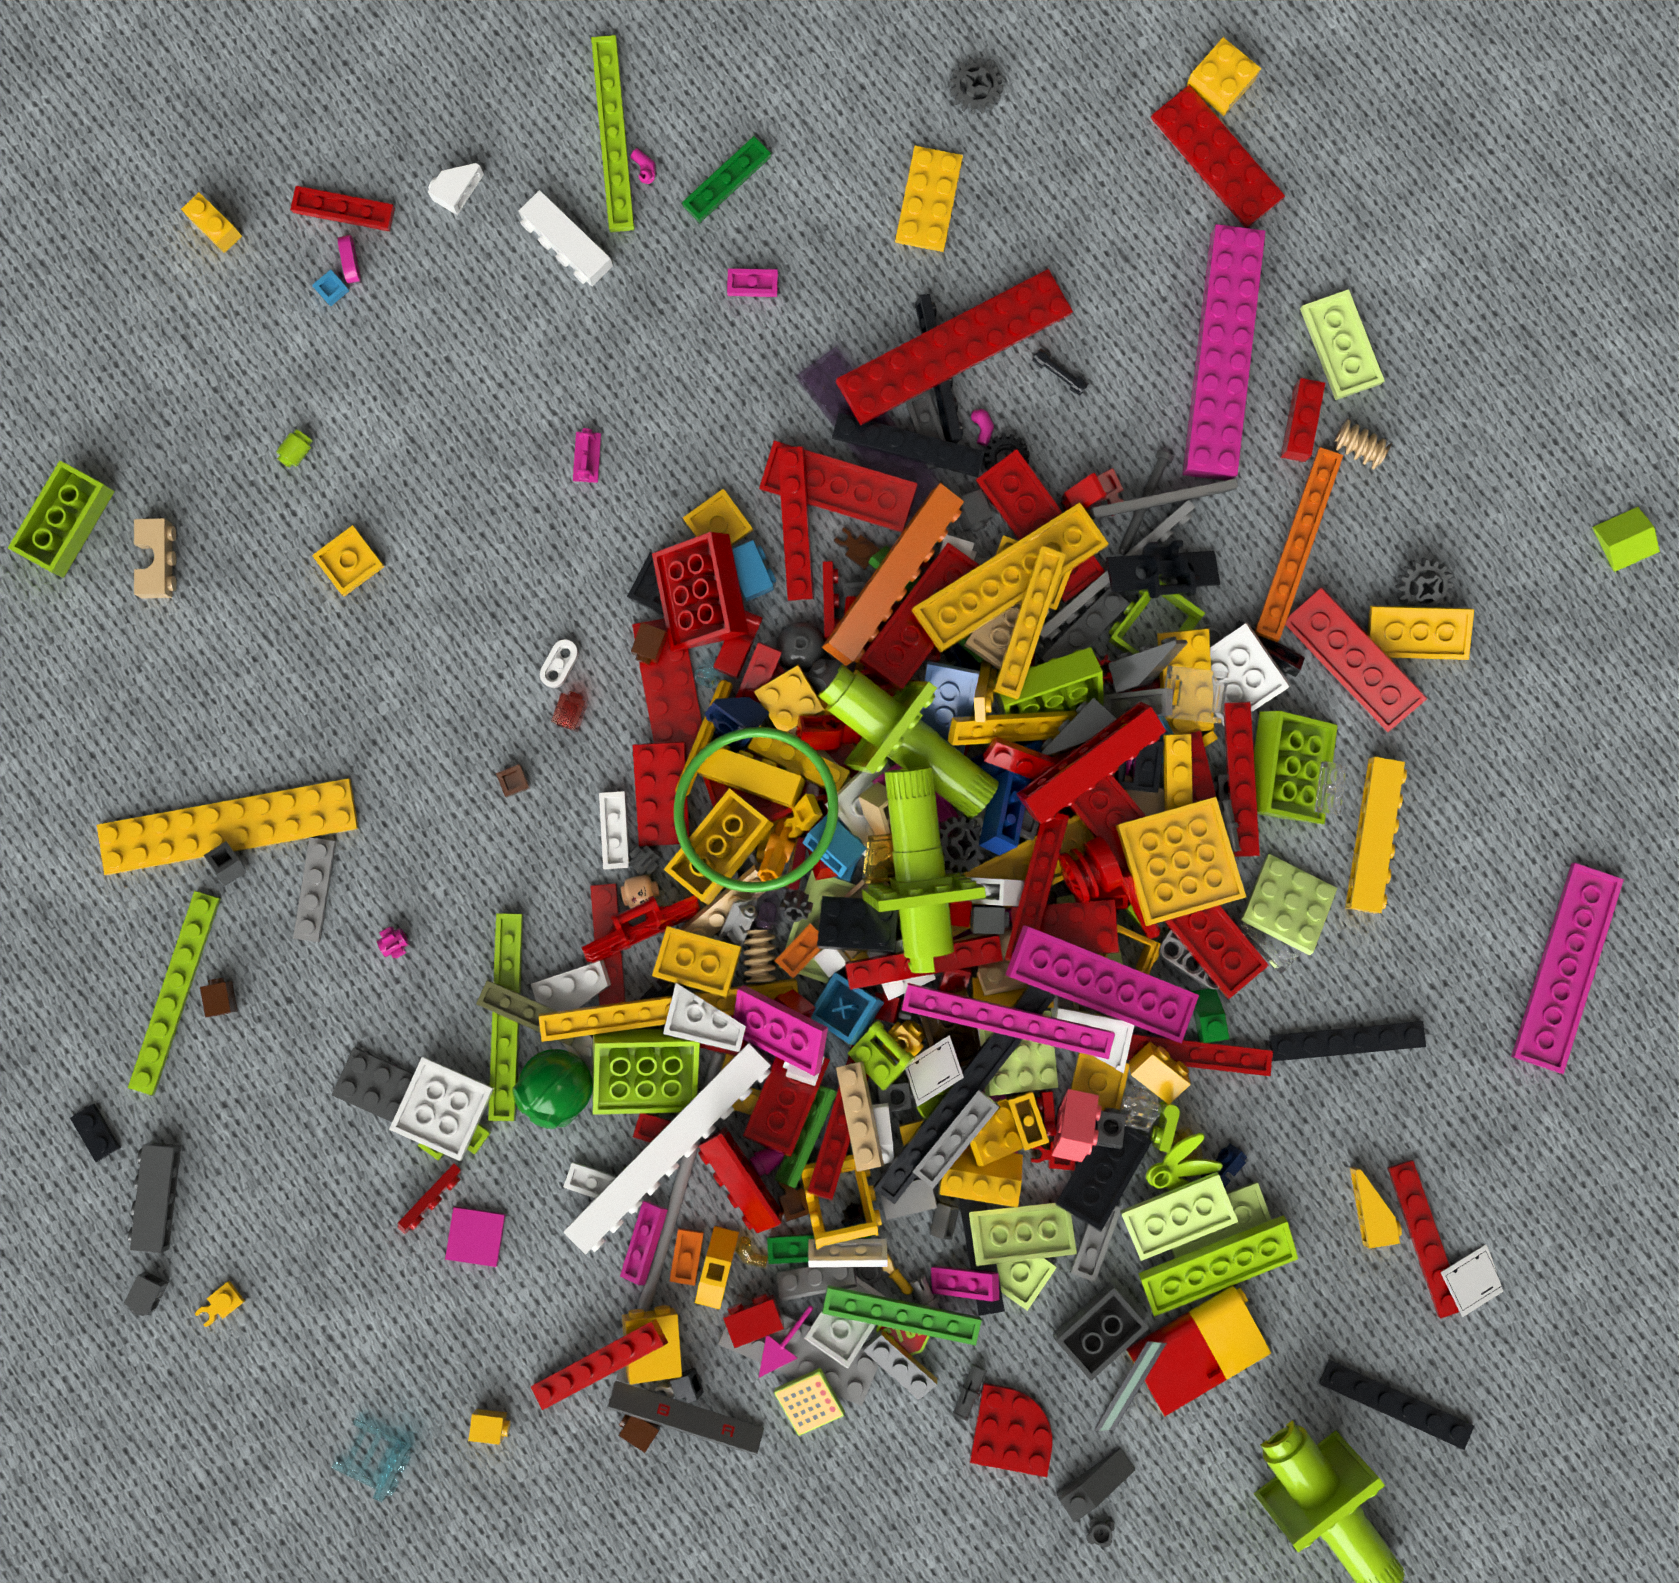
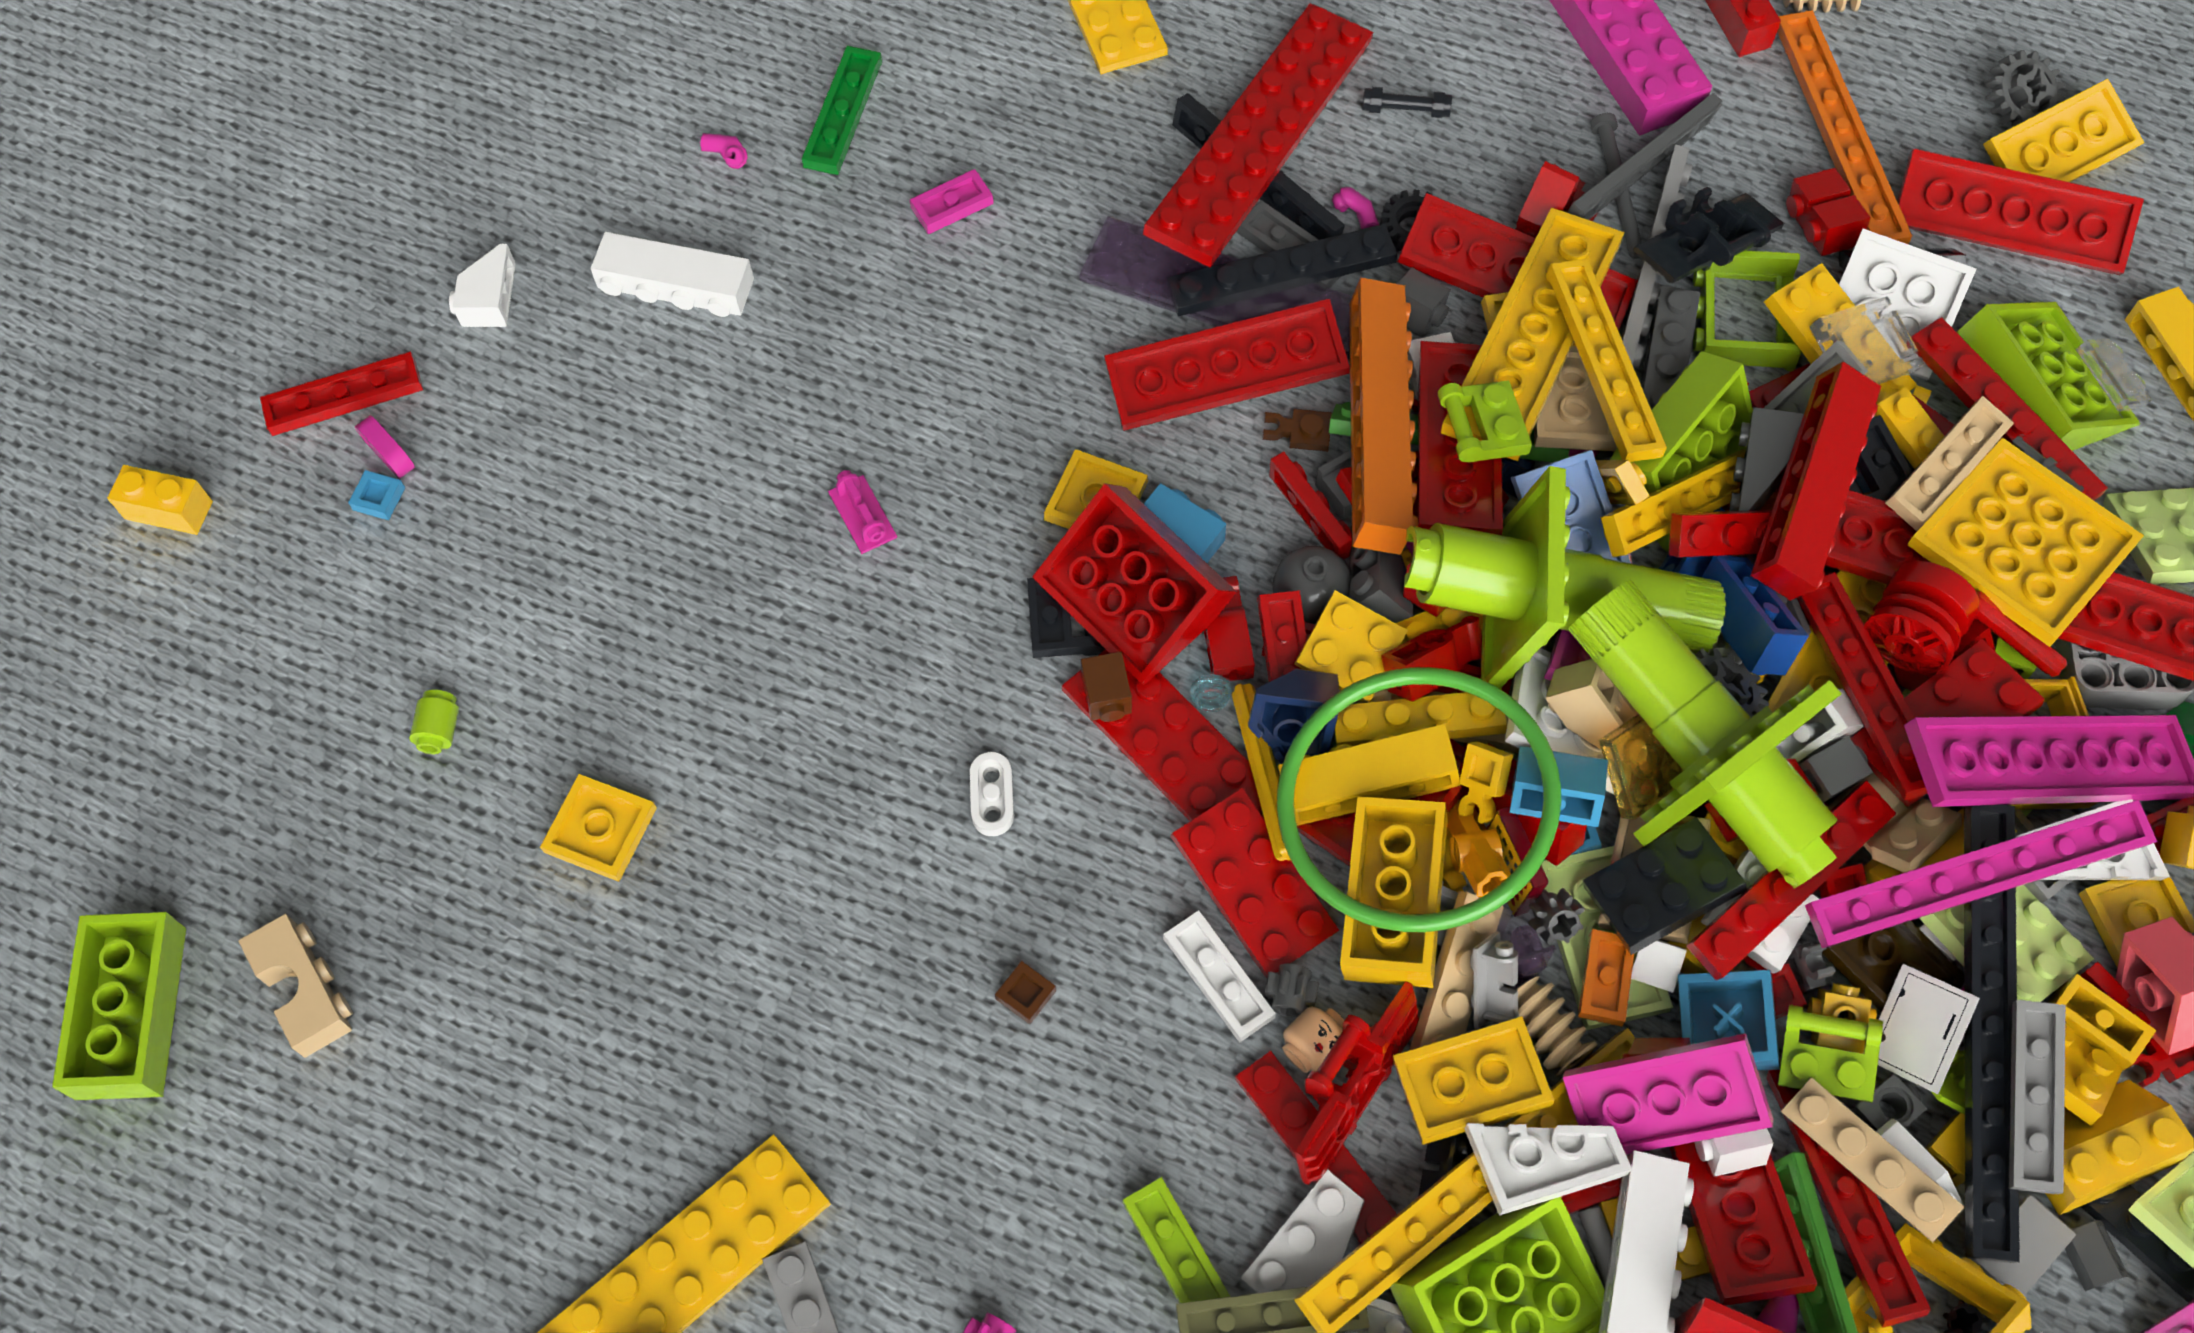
camera: 25 degrees left, 20 degrees down
(570, 711) = (1049, 847): clear red brick -> none
(612, 133) = (664, 135): lime plate -> none
(795, 523) = (1202, 438): red plate -> none
(941, 625) = (1496, 417): none -> lime plate
(1141, 669) = (1780, 347): dark grey slope -> none
(1175, 793) = (1949, 463): none -> tan plate
(1245, 595) = (1827, 222): none -> red piece

